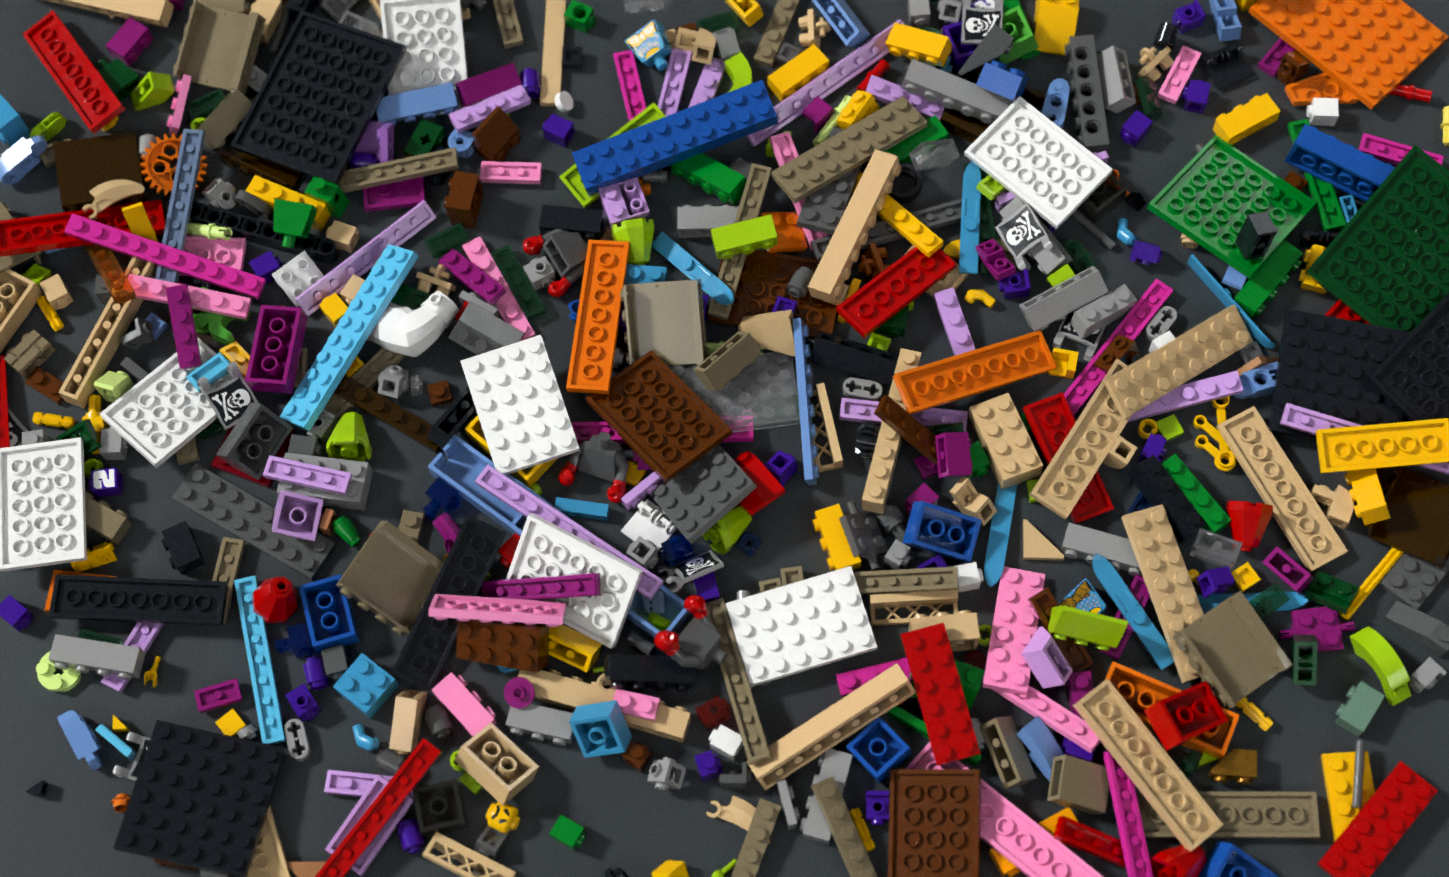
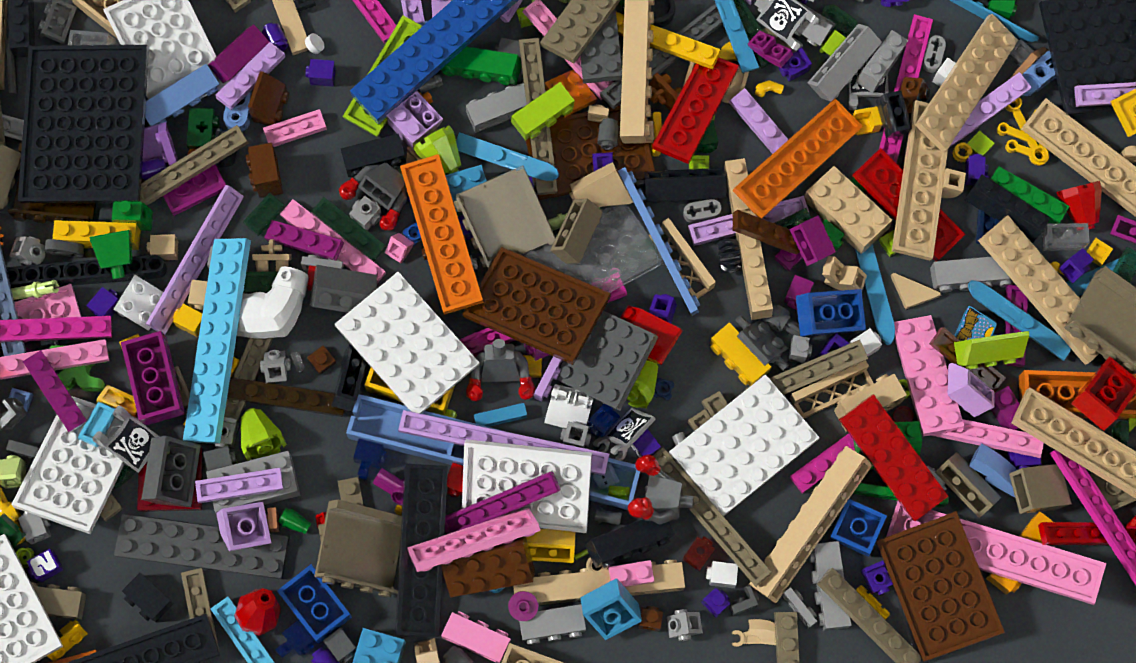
camera: 30 degrees left, 5 degrees up
(558, 316) = (399, 247): none -> bright pink slope
(798, 259) = (597, 113): none -> tan plate
(1089, 364) = (893, 114): none -> black brick

